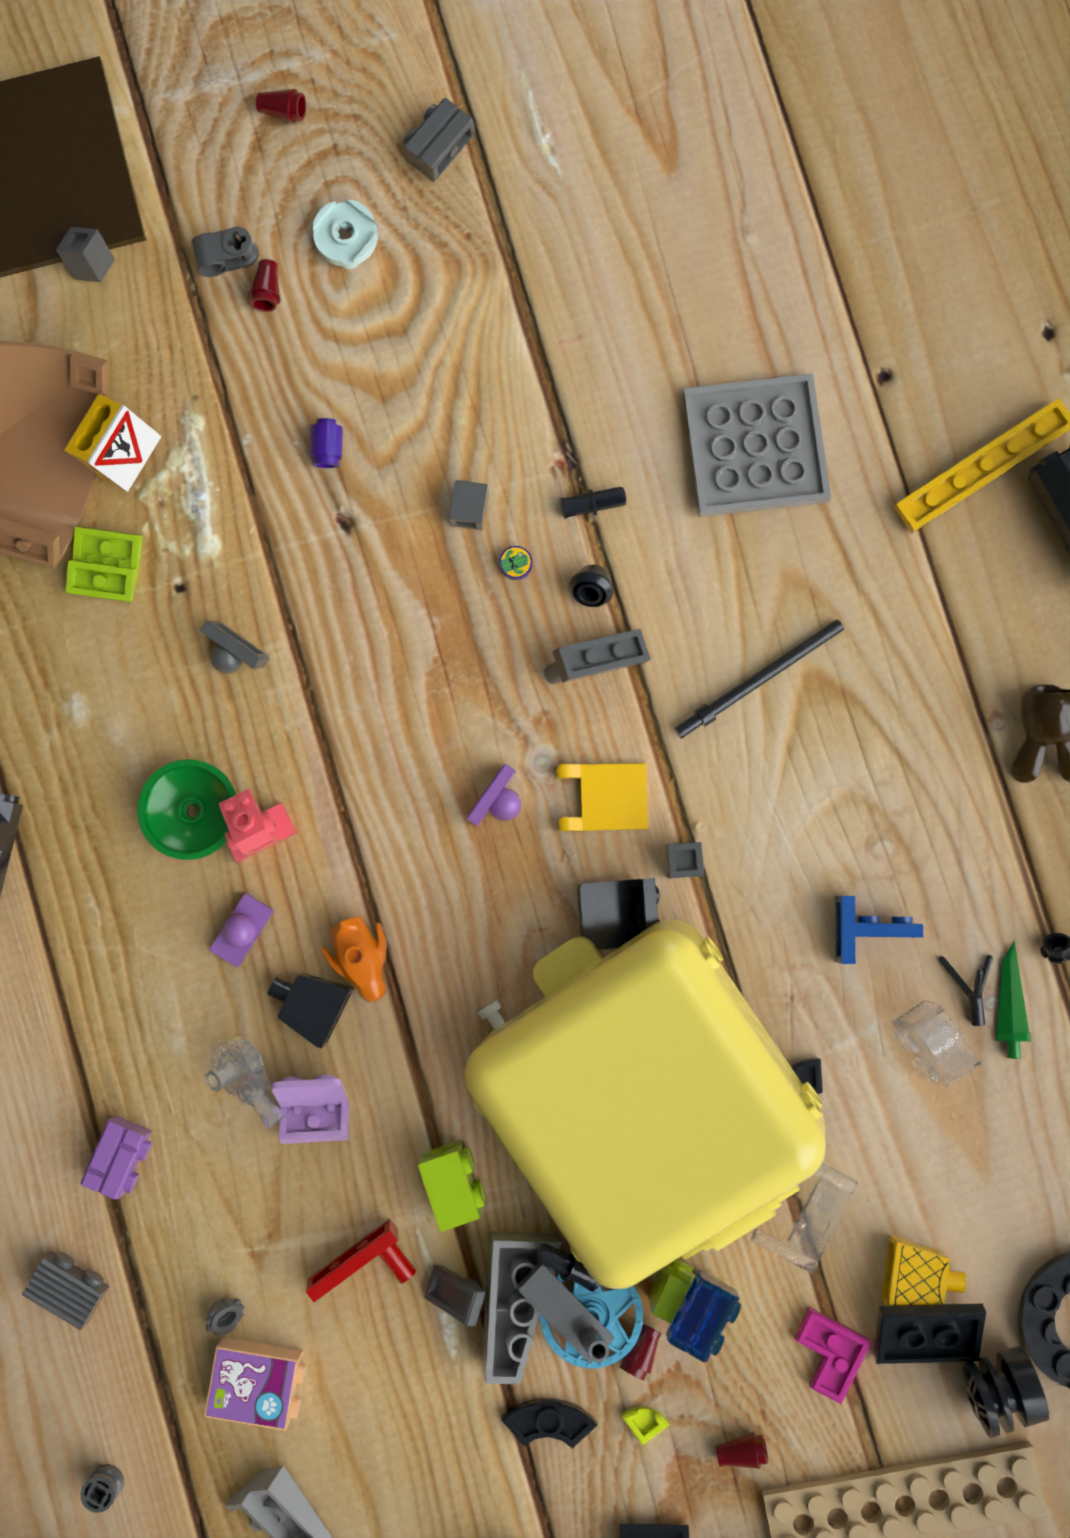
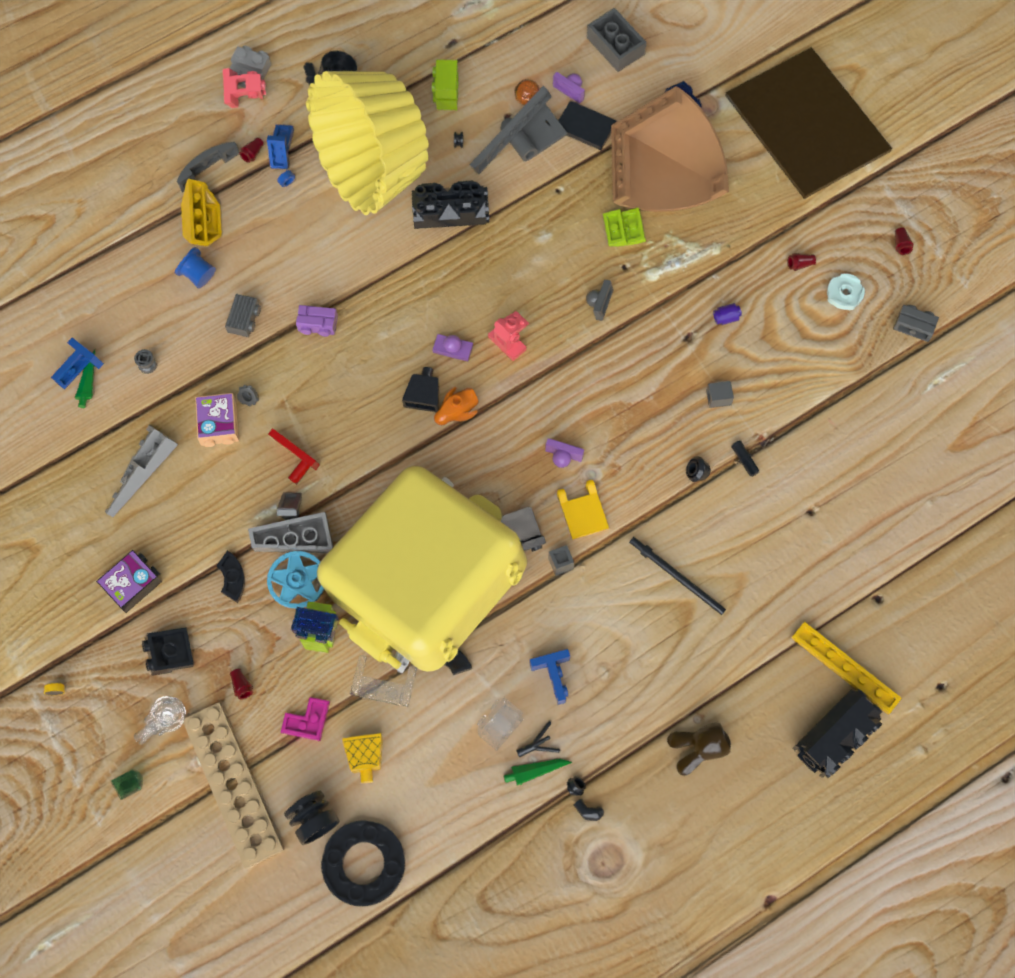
camera: 70 degrees right, 15 degrees down
(85, 254) = (783, 171): dark grey panel -> none
(113, 442) = (688, 210): piece -> none
(166, 805) = (508, 291): green dish -> none
(221, 251) = (811, 236): dark grey piece -> none
(243, 1078) = (376, 368): clear pin -> none
(312, 1109) = (369, 406): lavender bracket -> none
(451, 1185) = (348, 485): lime piece -> none
(516, 563) = (697, 428): tile -> none
(566, 1265) = (322, 550): black axle -> none
(566, 1313) = (296, 560): dark grey piece -> none
(597, 657) = (660, 483): dark grey piece -> none
(641, 1357) = (280, 613): dark red cone -> none
(644, 1422) = (243, 627): neon yellow tile -> none
(756, 445) = (810, 537): light grey plate -> none
(929, 1333) = (333, 768): black tile -> none

